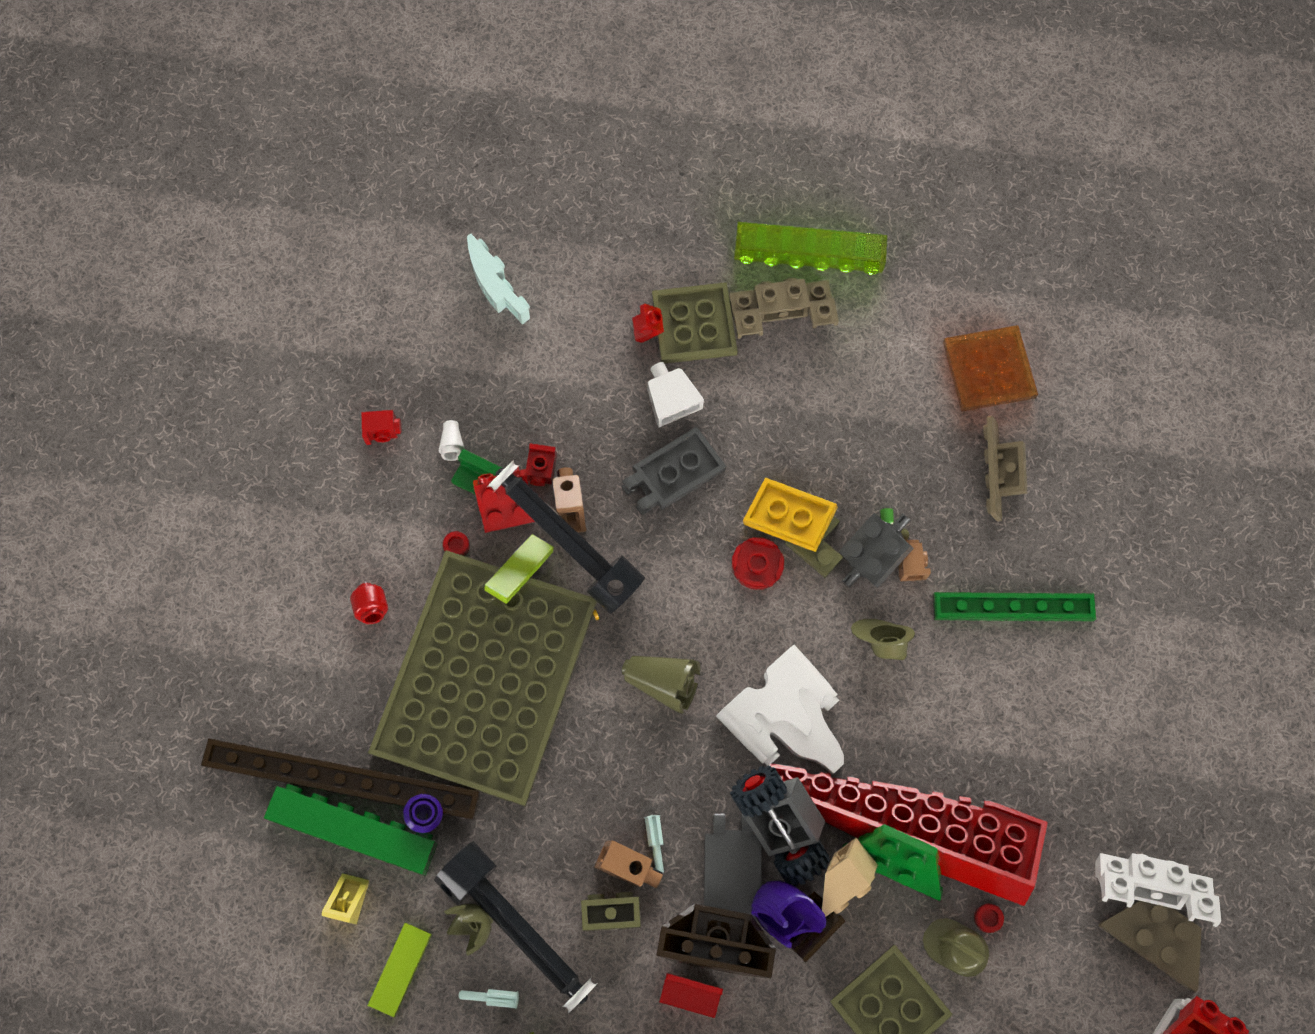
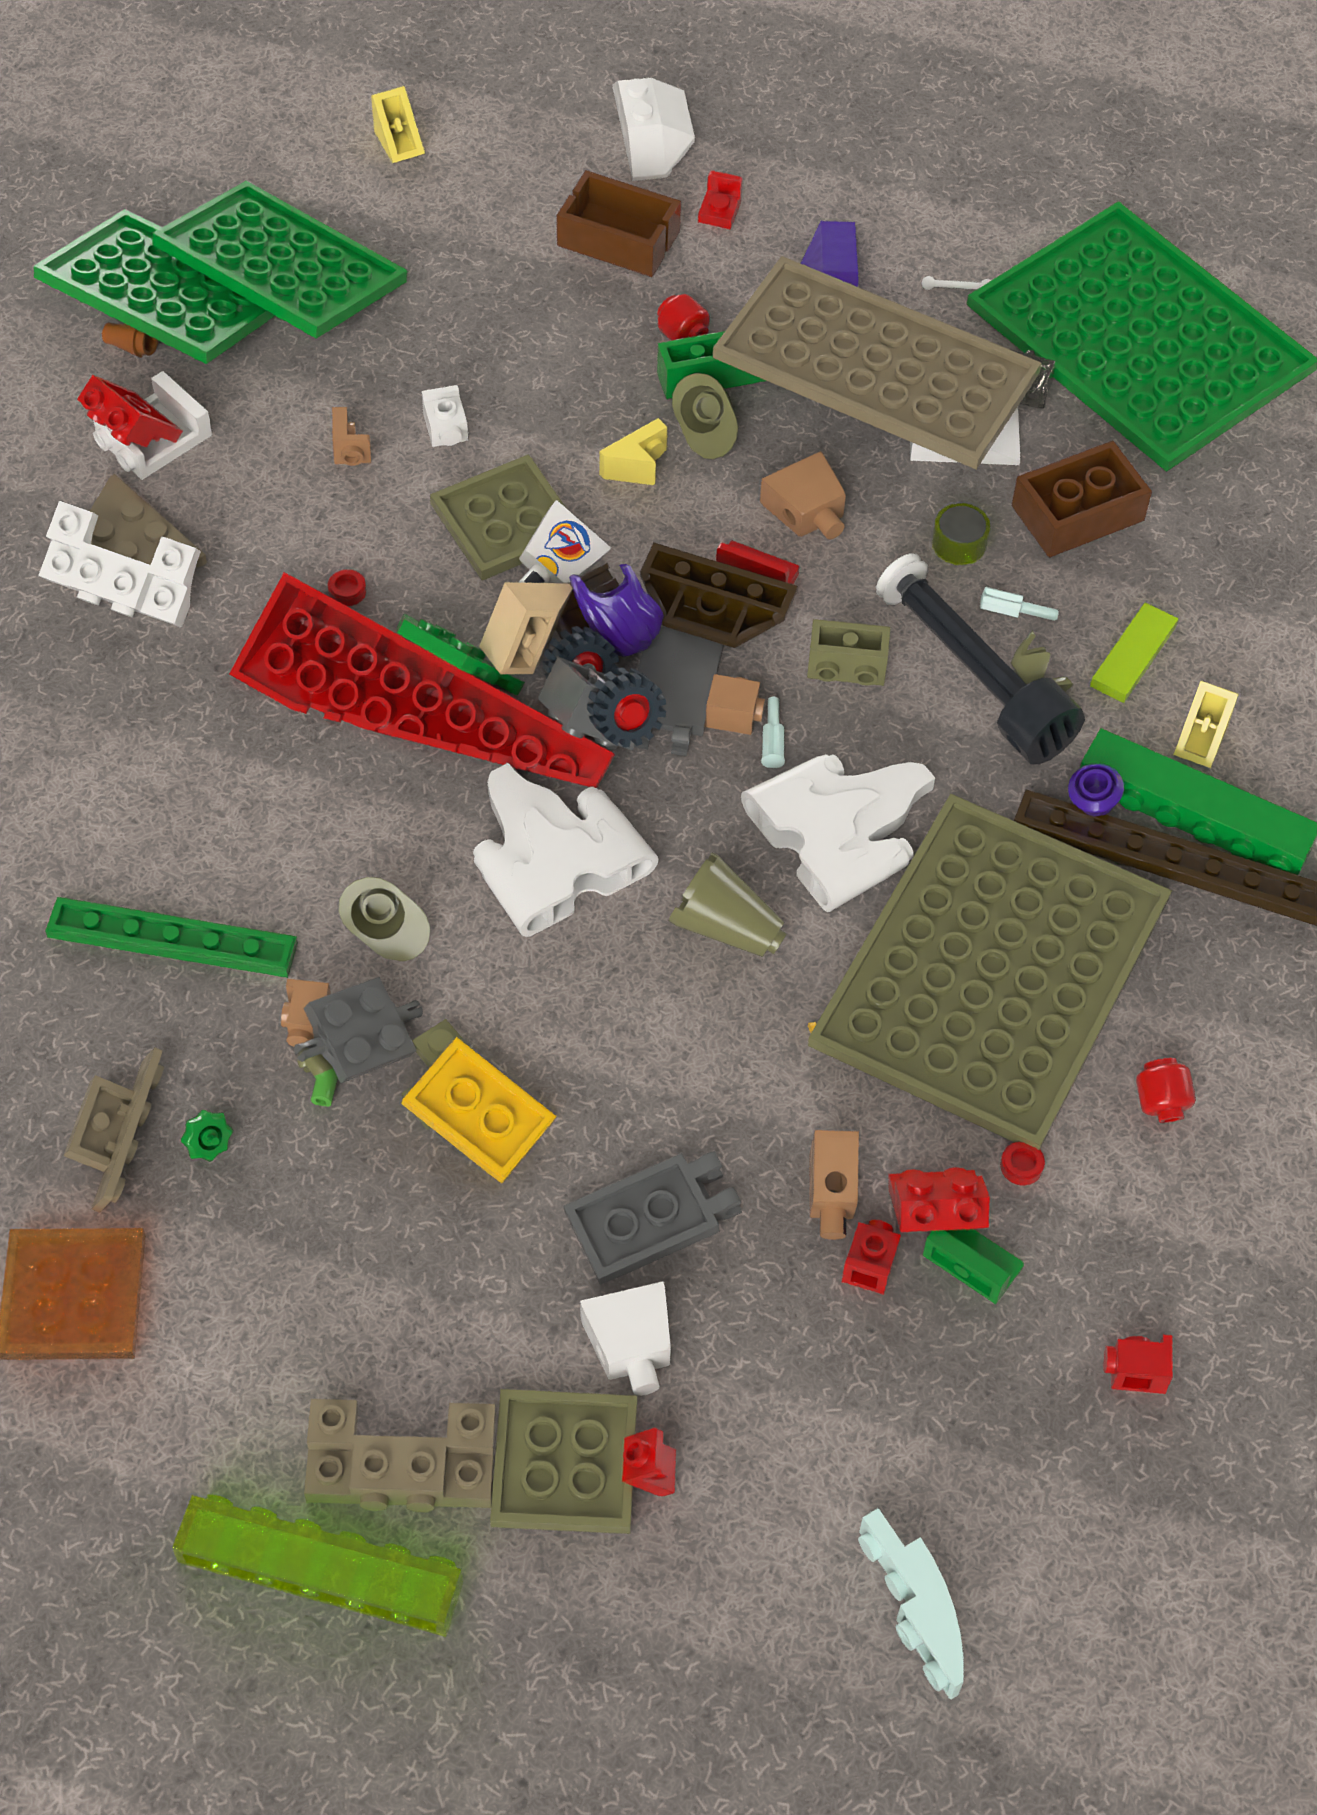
camera: 170 degrees left, 15 degrees down
(451, 441) = (1019, 1320): white cone -> none
(518, 568) = (925, 1094): lime tile -> none
(572, 542) = (785, 1044): black piece -> none
(601, 771) = (839, 823): none -> white rock
(616, 859) = (821, 701): medium nougat torso -> none
(686, 857) = (734, 704): none -> medium nougat brick
(754, 571) = (542, 1070): red tile -> none
(840, 968) = (561, 548): none -> white torso
(947, 472) = (206, 1135): none -> green piece
(956, 947) = (399, 565): olive piece -> none

